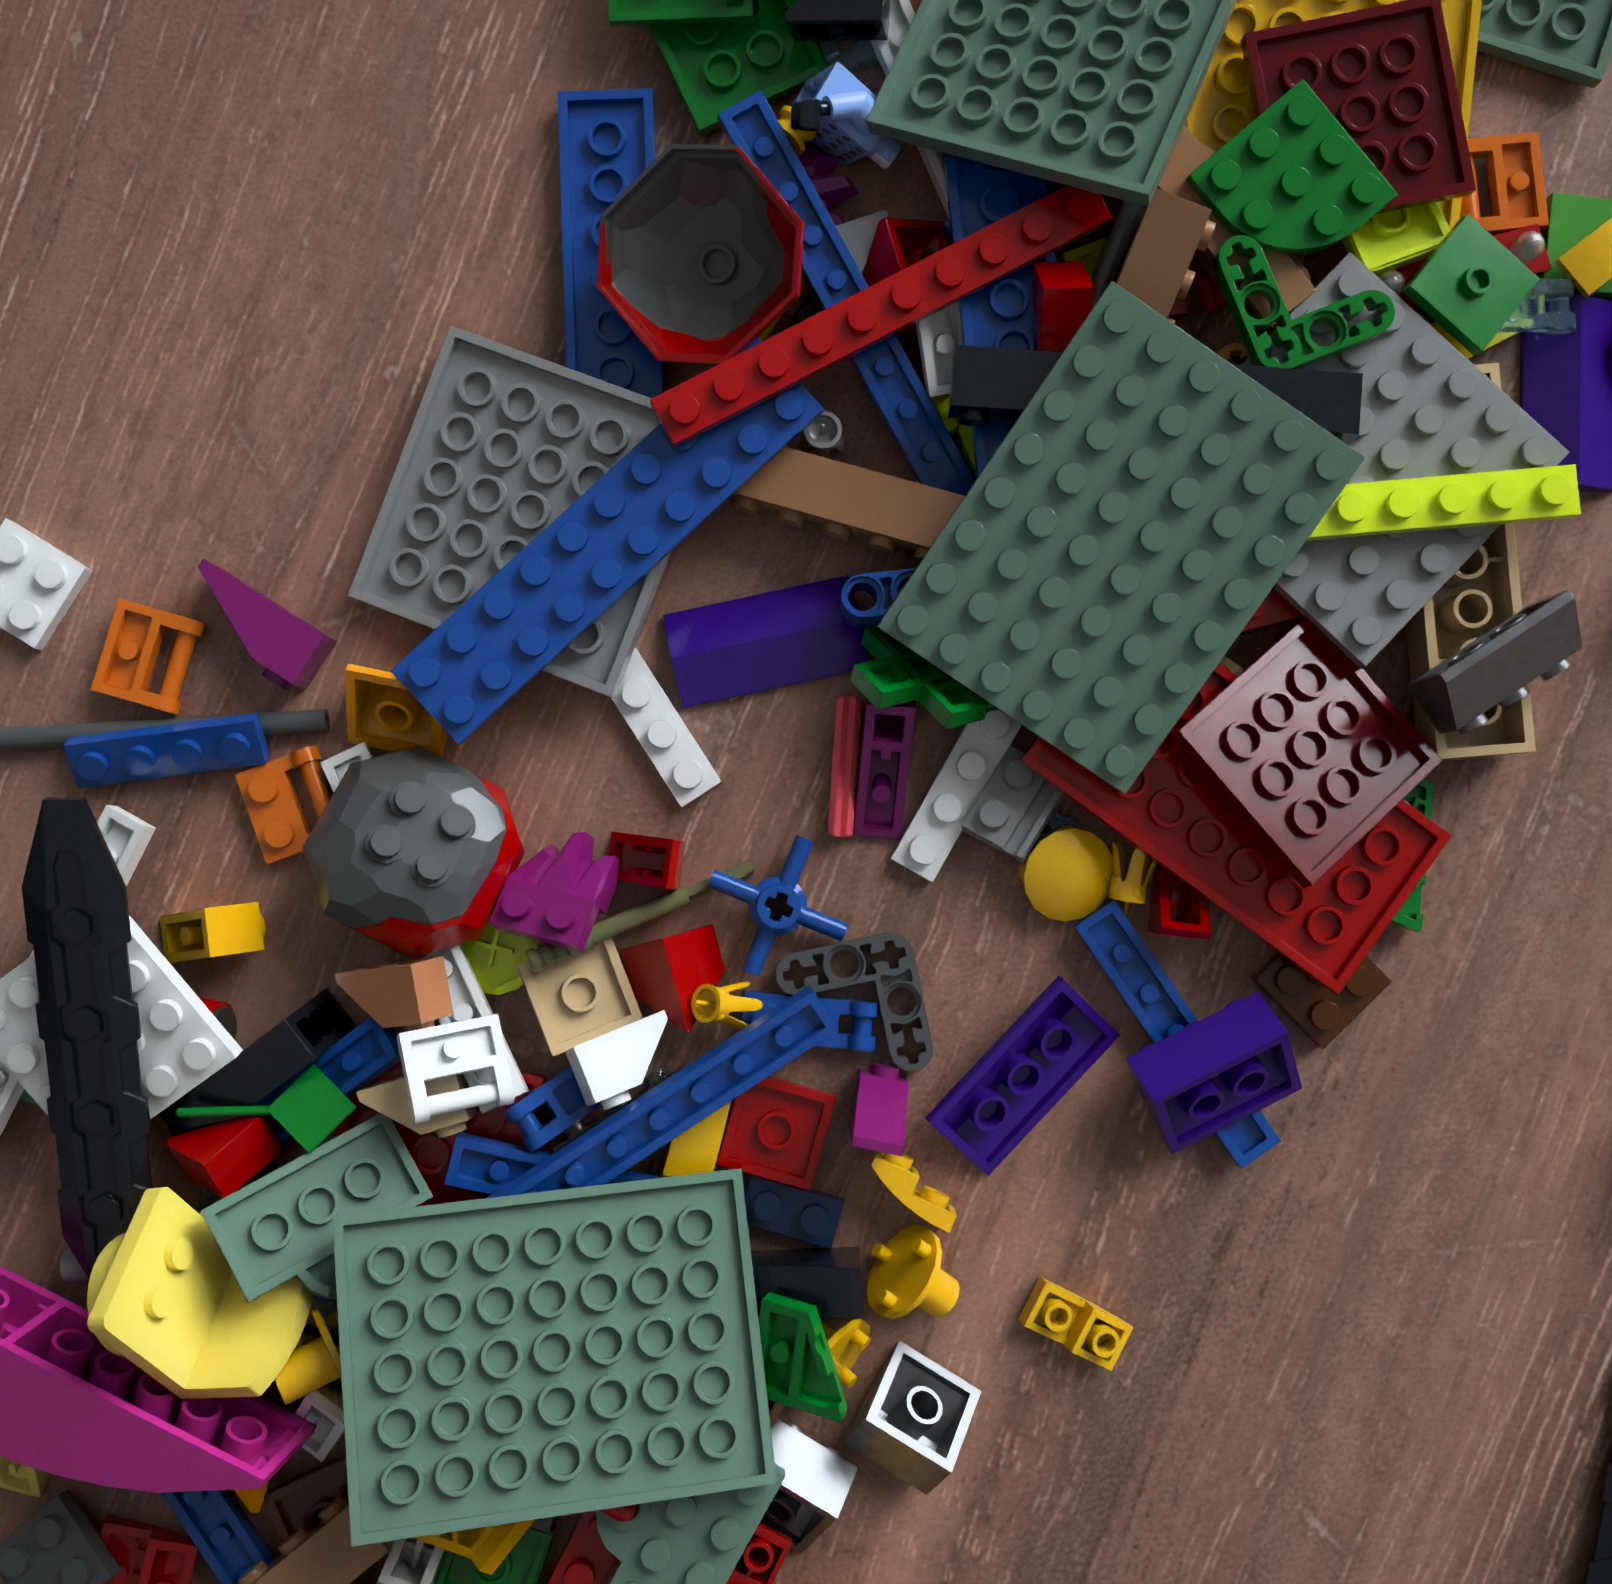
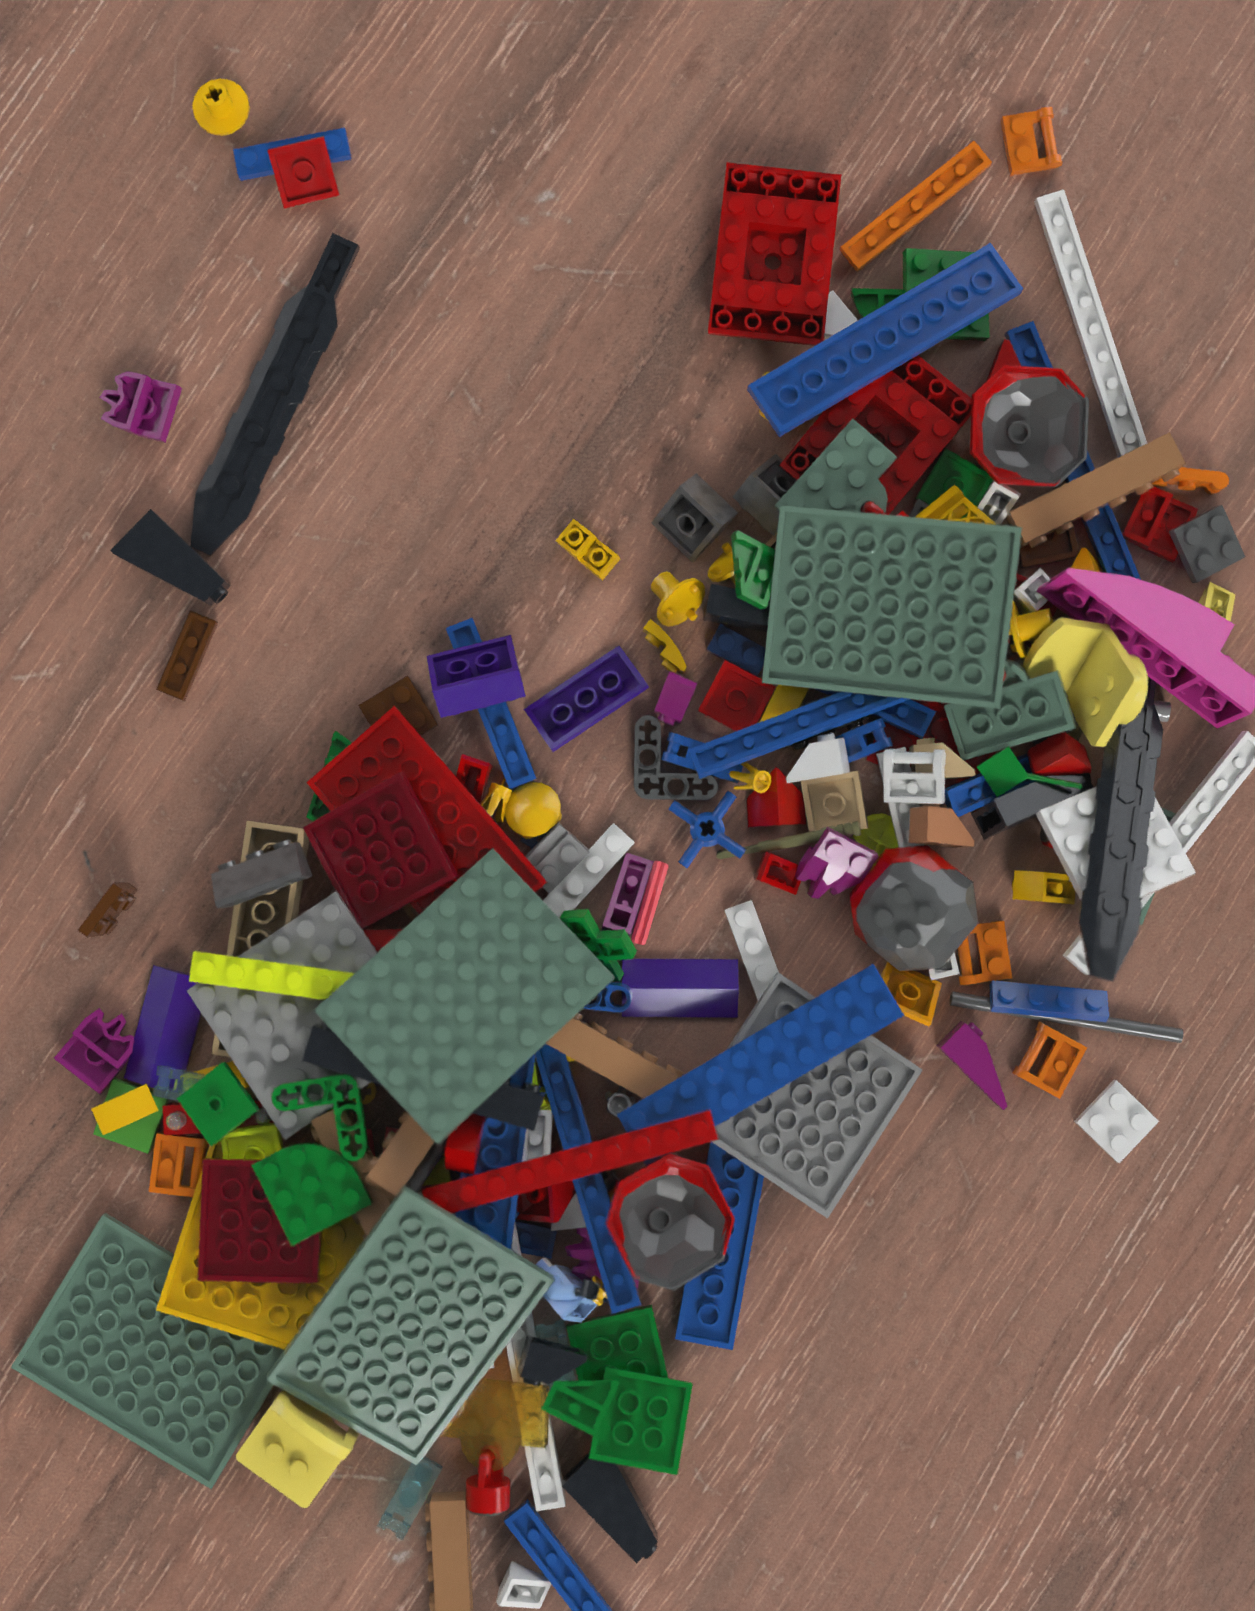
camera: 165 degrees left, 0 degrees up
(908, 194) = (535, 1239): none -> dark blue plate

